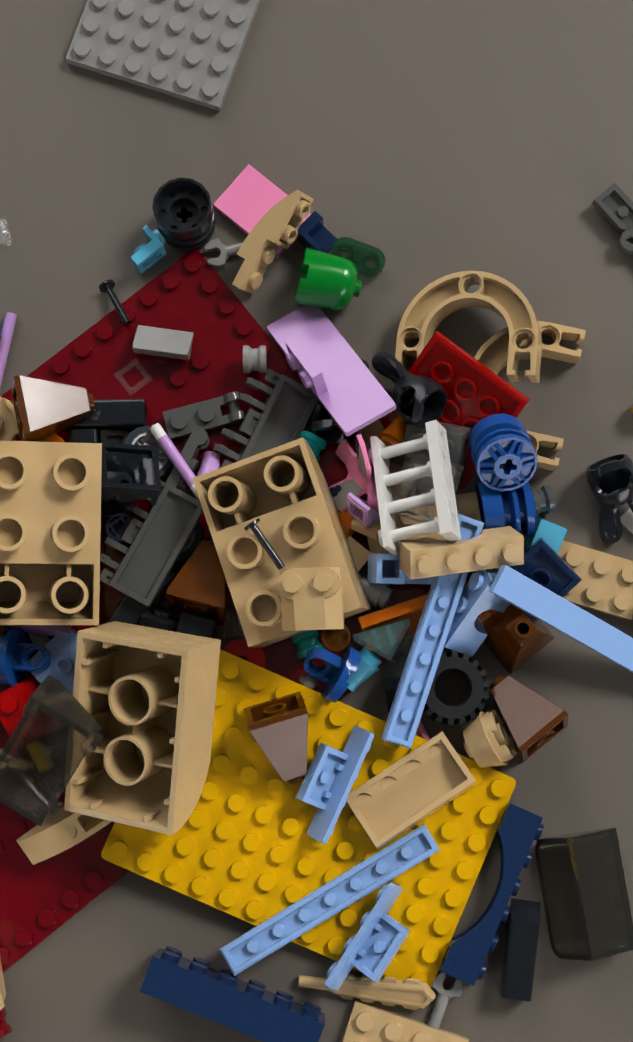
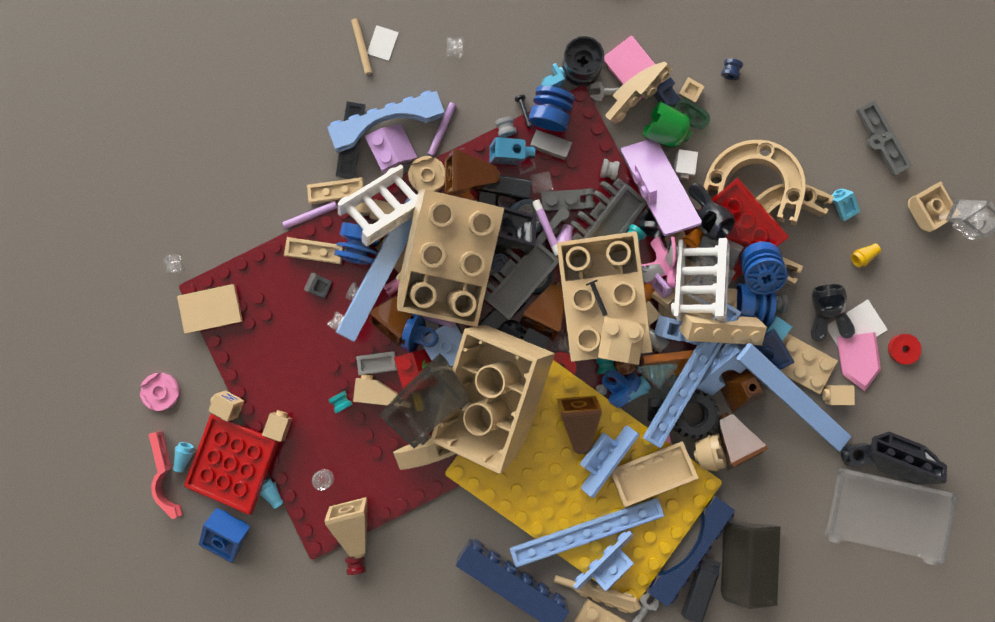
camera: 10 degrees right, 5 degrees up
(92, 330) = (506, 126): none -> light grey wheel
(94, 364) = (503, 151): none -> dark azure torso
(151, 290) = (551, 108): none -> blue wheel
(160, 399) = (541, 182): none -> clear slope
(350, 223) = (691, 90): none -> tan plate
(363, 329) = (685, 164): none -> white brick
(402, 182) = (732, 69): none -> dark blue wheel
(606, 337) = (845, 203): none -> medium azure bracket

